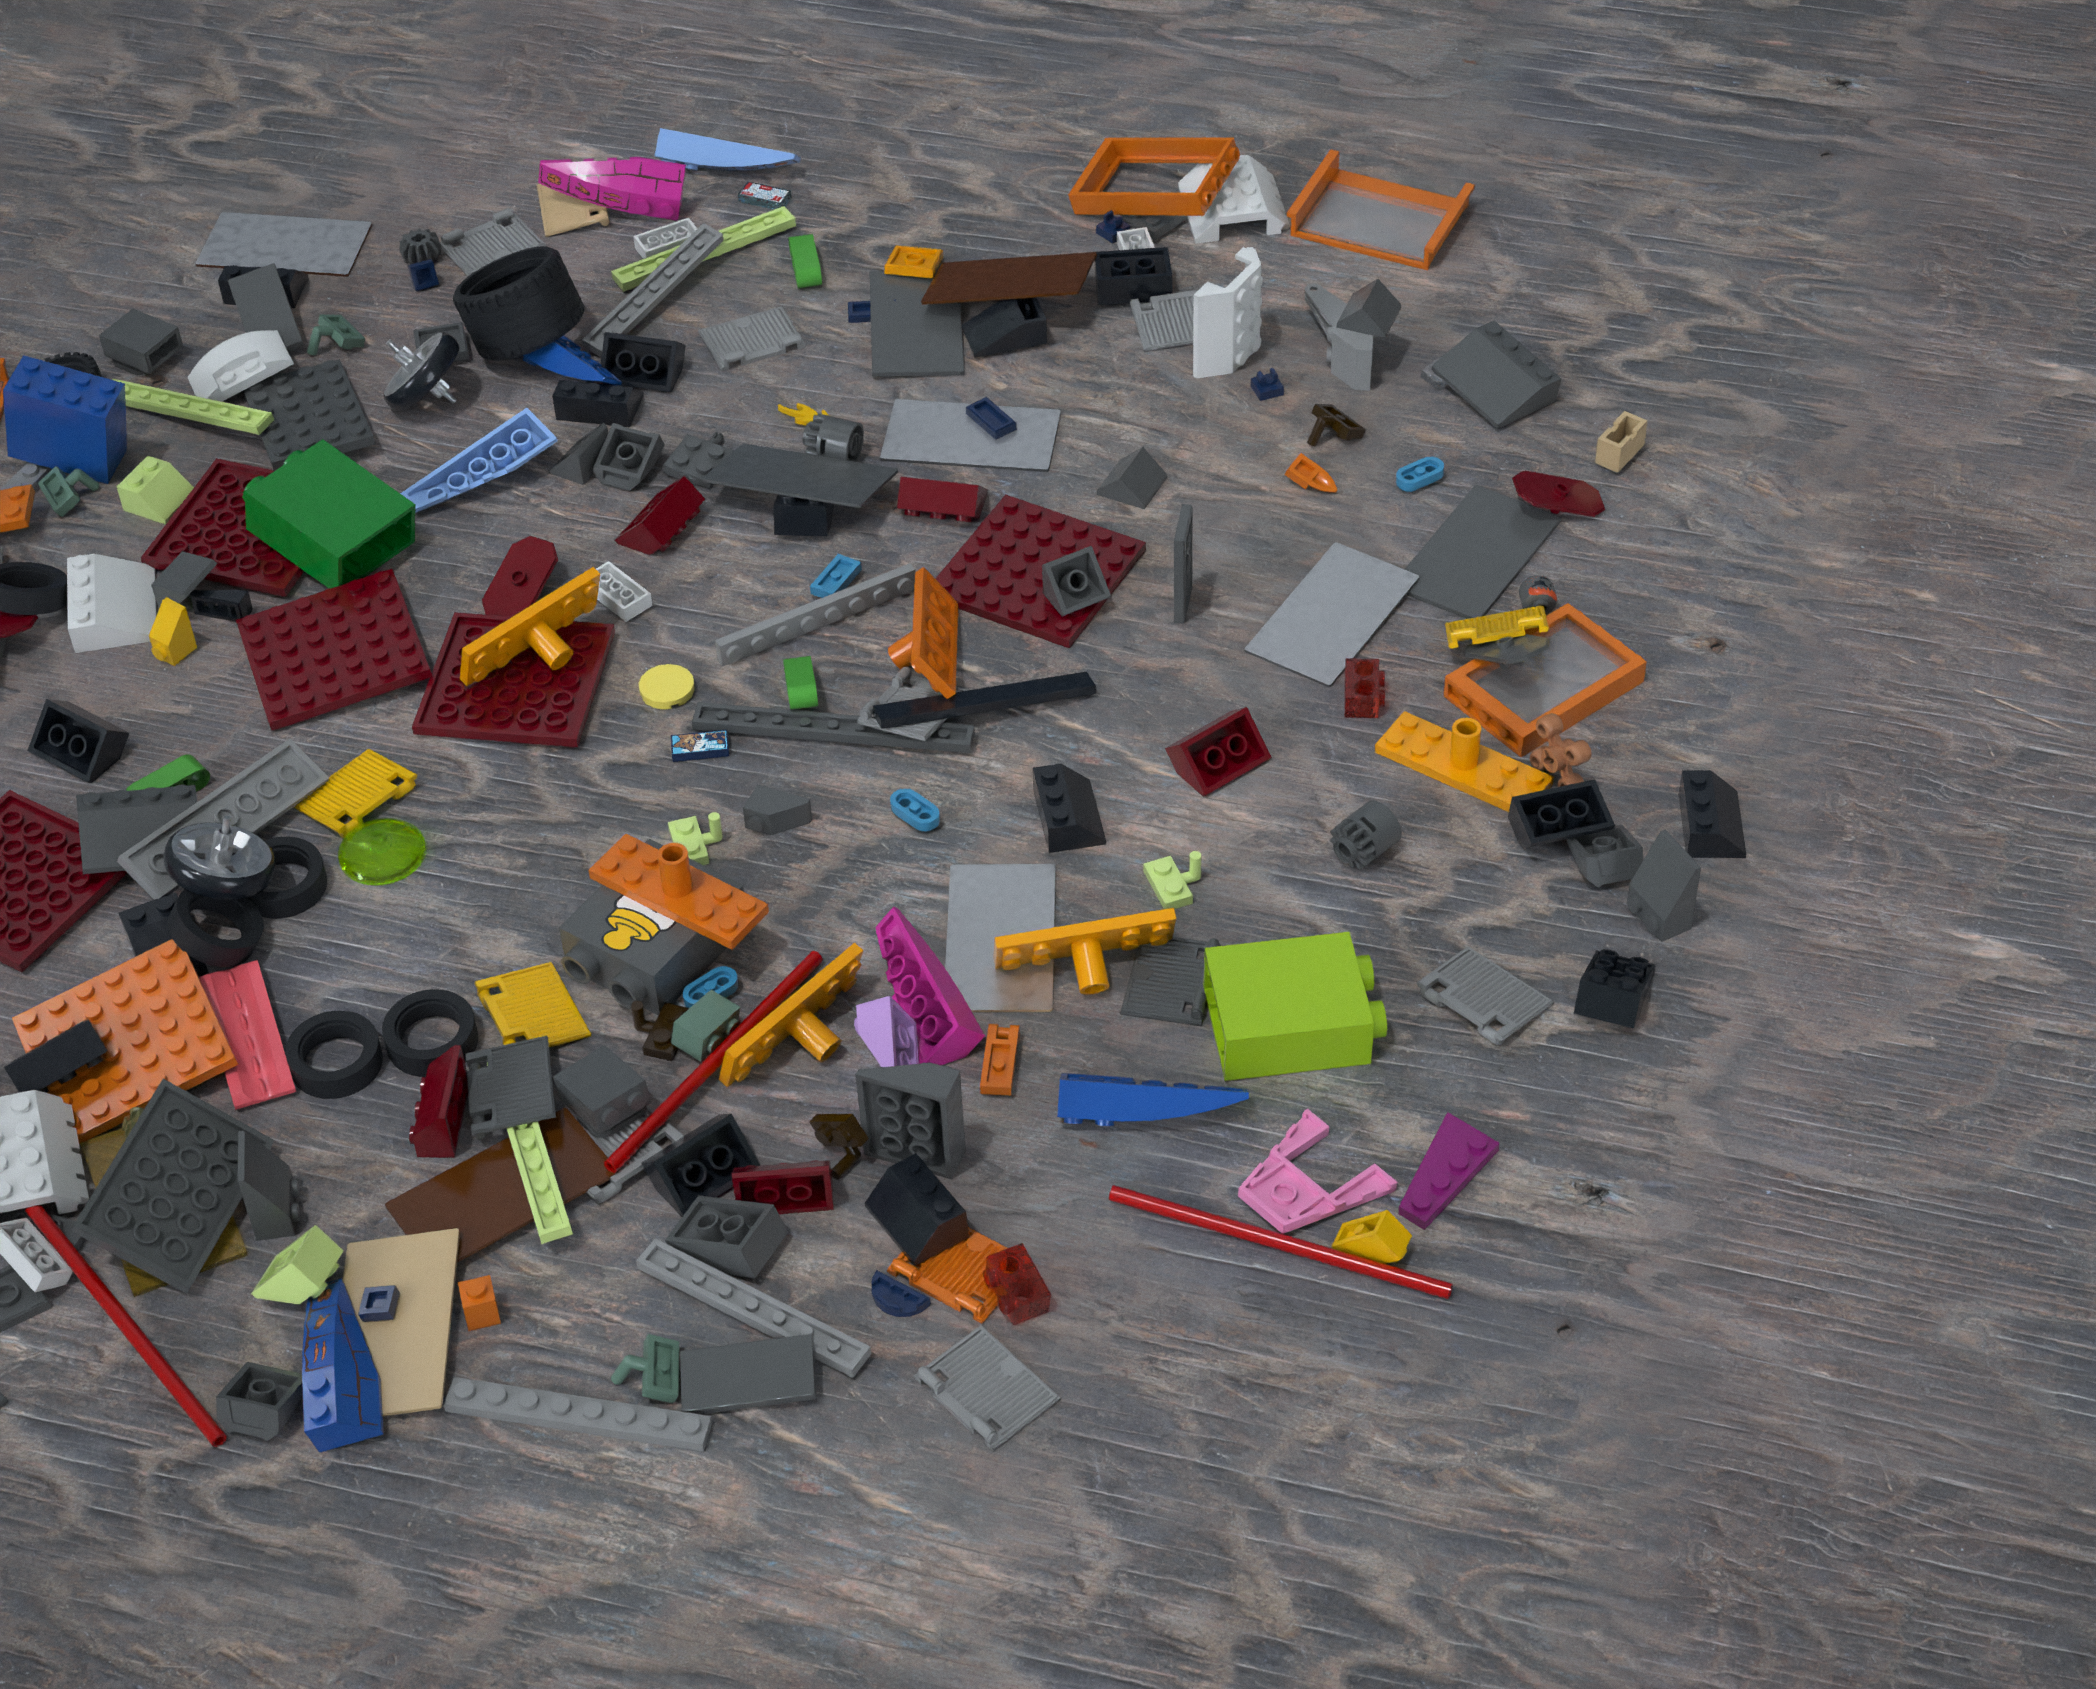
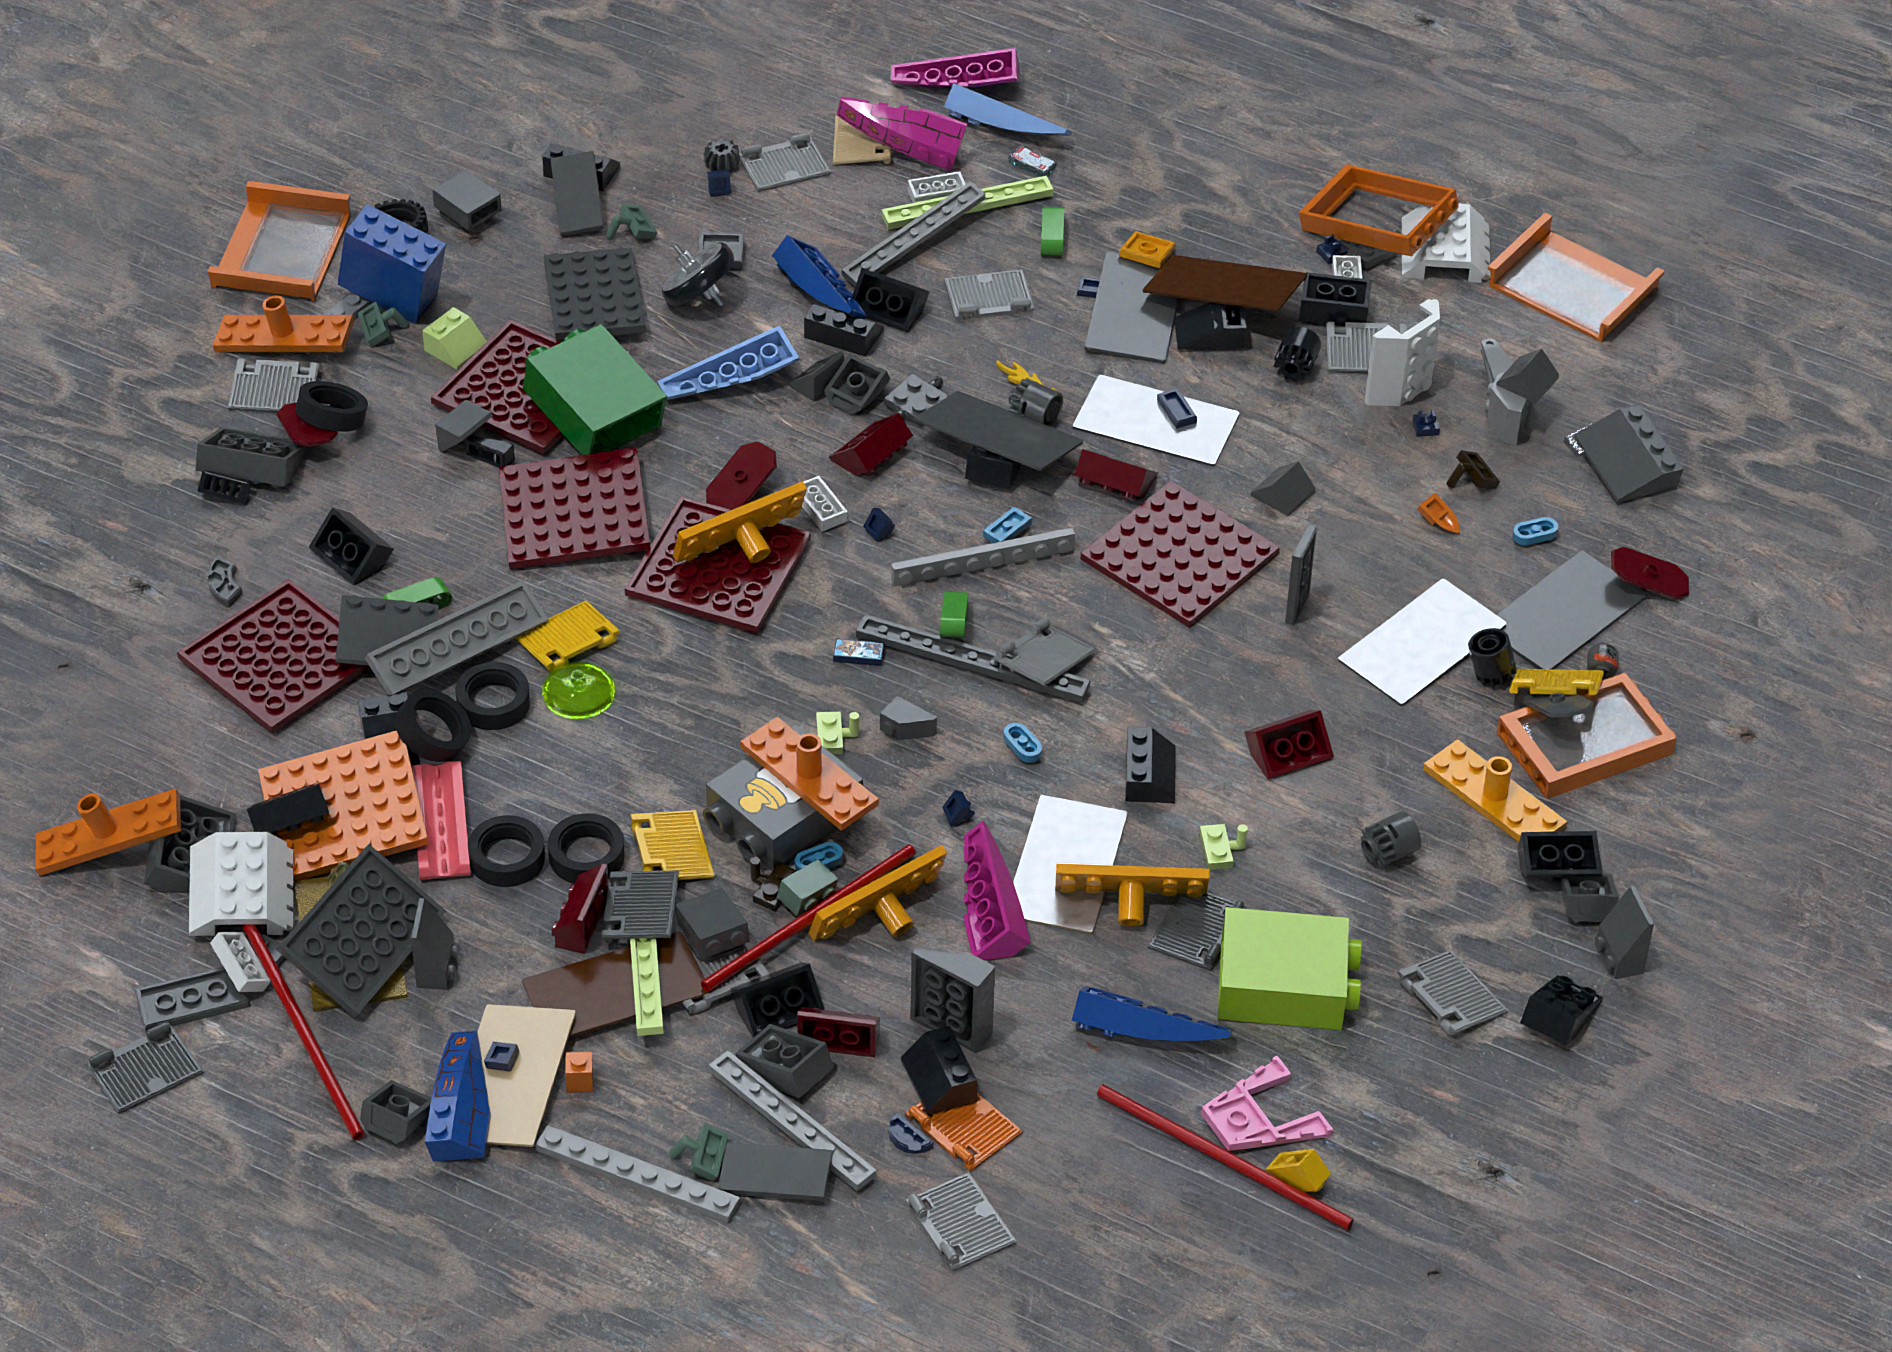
camera: 10 degrees right, 0 degrees up
(109, 602) = (398, 431): white slope -> none
(172, 633) = (444, 469): yellow slope -> none
(196, 408) = (499, 269): yellowish green tile -> none
(239, 364) = (544, 238): white slope -> none
(251, 865) = (436, 686): flat silver wheel -> none
(290, 242) = (606, 129): flat silver piece -> none
(300, 1269) = (446, 1016): yellowish green slope -> none
(518, 303) = (793, 228): black tyre -> none
(666, 686) = (842, 595): light yellow tile -> none
(675, 113) = (963, 70): none -> dark pink wedge
(689, 601) = (878, 524): none -> dark blue tile
(840, 1131) = (895, 996): dark brown plate -> none
(859, 899) = (957, 808): none -> dark blue tile
(887, 1032) = (951, 924): lavender slope -> none
(933, 642) = (1073, 600): orange plate -> none
(984, 700) = (1104, 659): black tile -> none
(999, 1060) = (1038, 964): orange plate -> none
(1022, 1282) = (1008, 1145): clear red brick -> none
(1074, 581) = (1206, 571): dark grey slope -> none
(1108, 336) = (1297, 353): none -> black gear
(1361, 688) = (1427, 712): clear red brick -> none
(1417, 613) = (1492, 656): none -> black gear
(1446, 1169) = (1377, 1126): magenta wing -> none
(1559, 754) = (1574, 803): nougat gear -> none
(1621, 441) = (1719, 537): tan brick -> none
(1710, 816) = (1690, 882): black slope -> none

